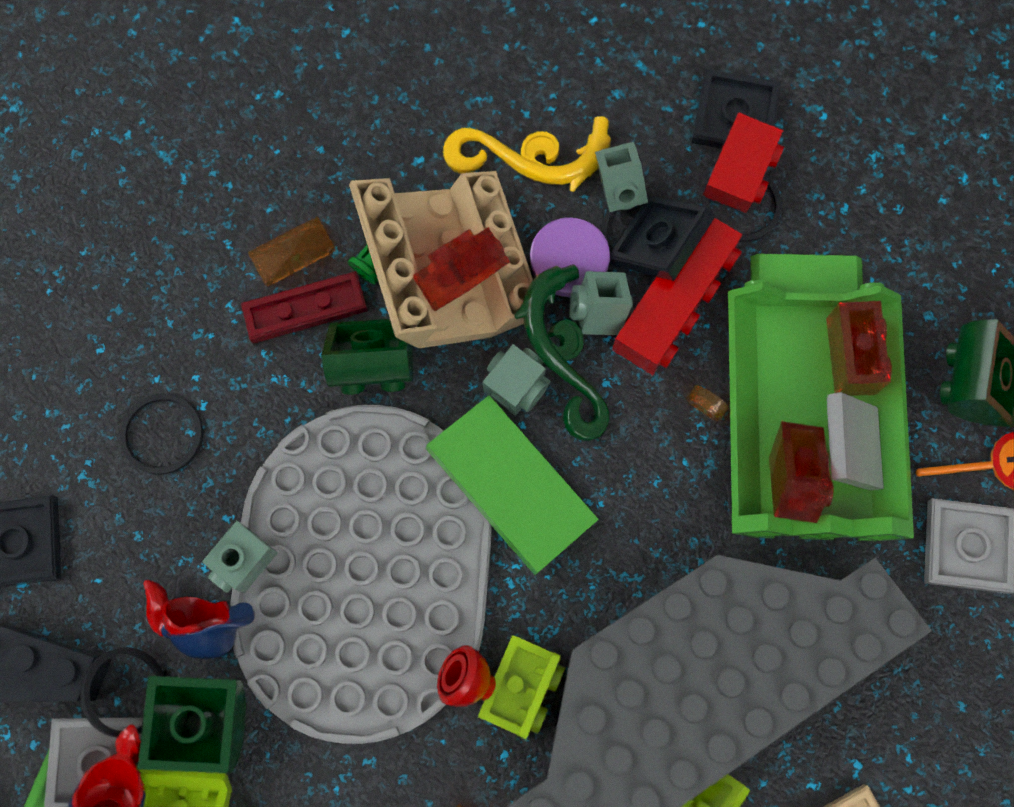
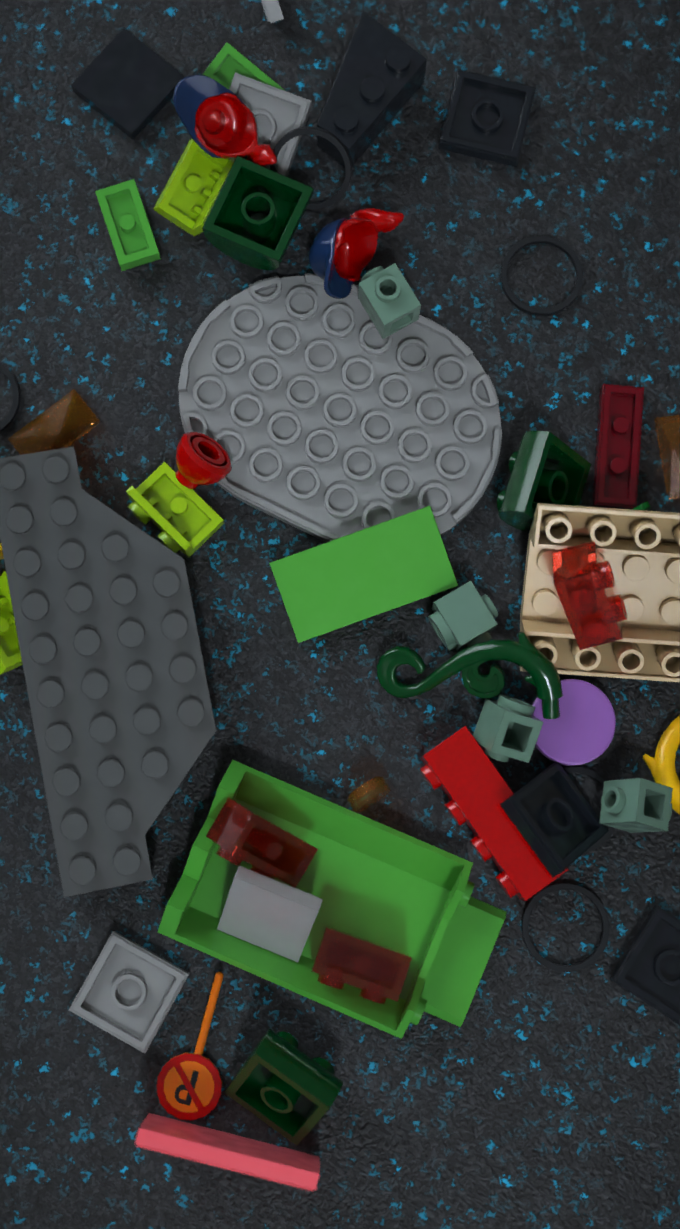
camera: 105 degrees right, 5 degrees up
(743, 162) = (604, 939): red brick -> none

